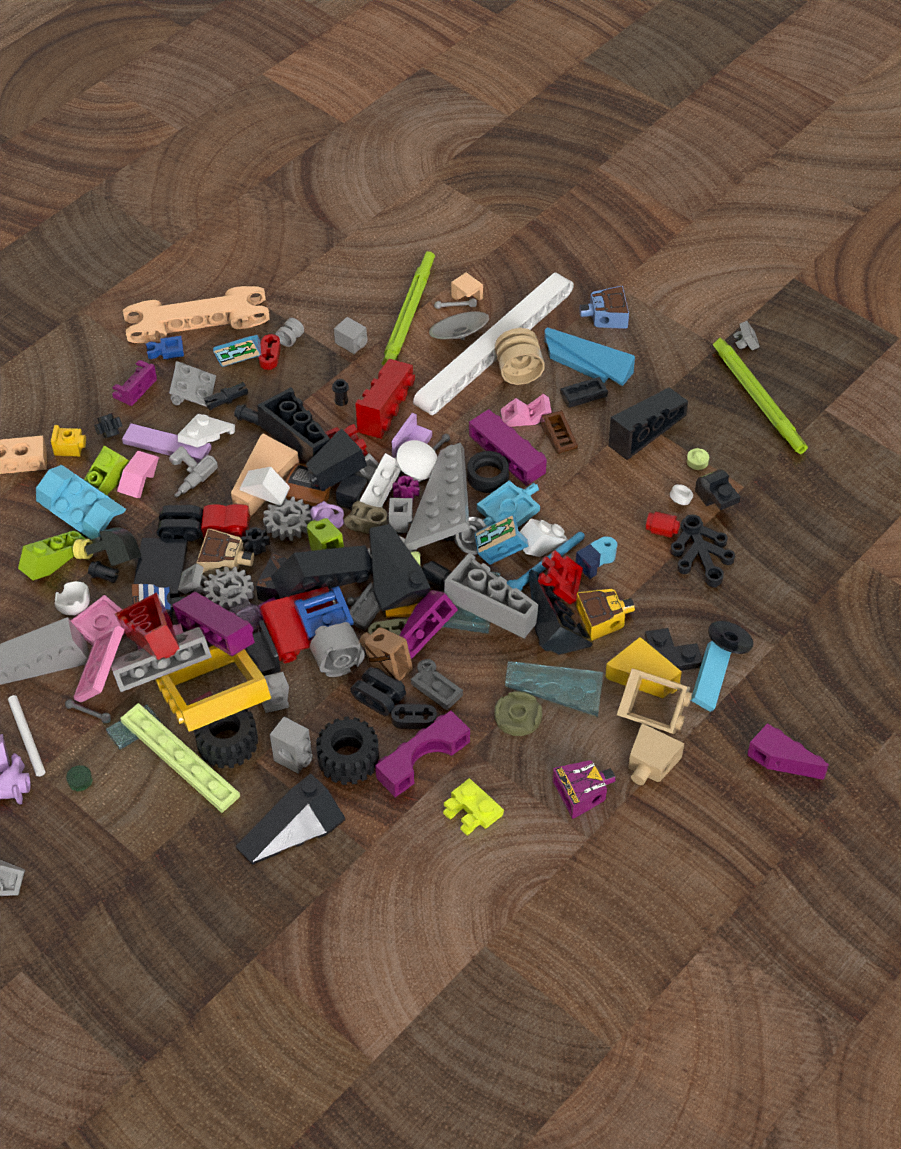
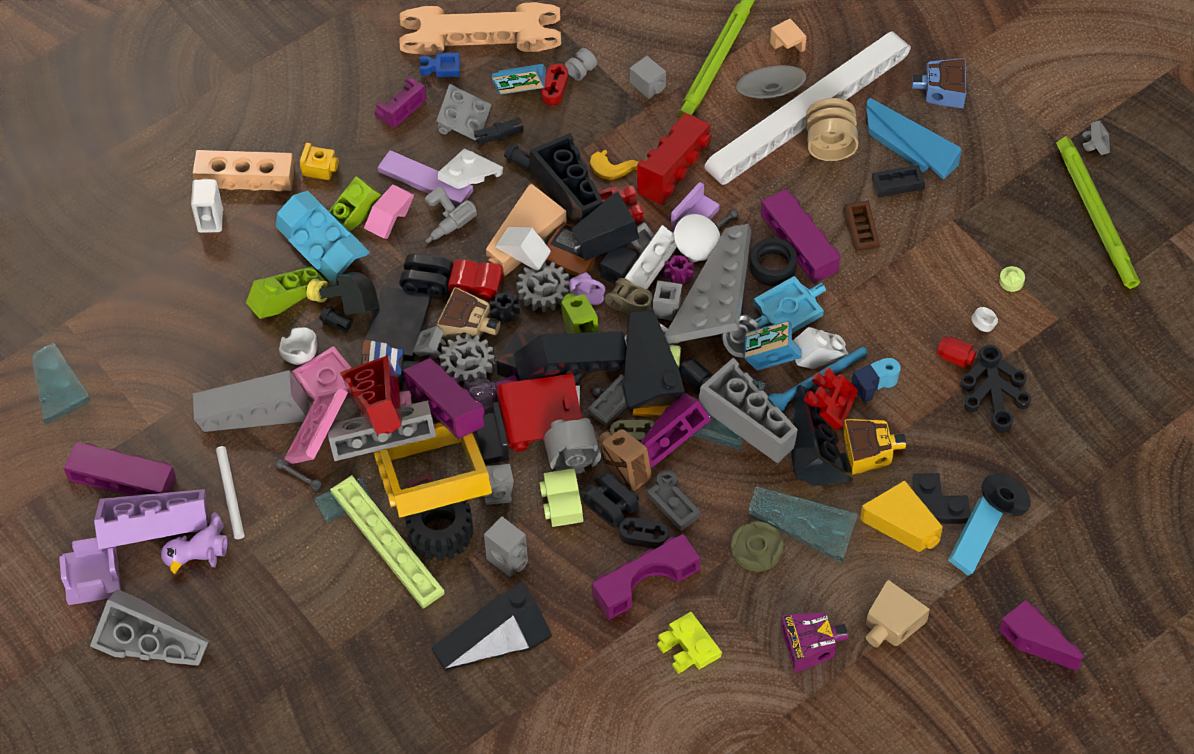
camera: 10 degrees right, 5 degrees up
(79, 778) = (278, 548): clear green tile -> none
(108, 425) = (364, 150): black gear -> none
(324, 617) = (565, 409): blue plate -> none
(326, 416) = (605, 170): none -> yellow piece
(335, 695) = (562, 496): none -> yellowish green brick
(340, 389) = (625, 142): black pin -> none
(347, 767) = (565, 580): black tyre -> none
(472, 303) = (791, 54): light grey hinge -> none
(519, 414) = (821, 197): bright pink slope -> none
(630, 694) = (882, 544): tan window -> none
(645, 422) = (961, 227): black wedge -> none
(716, 489) = (1024, 319): black brick -> none

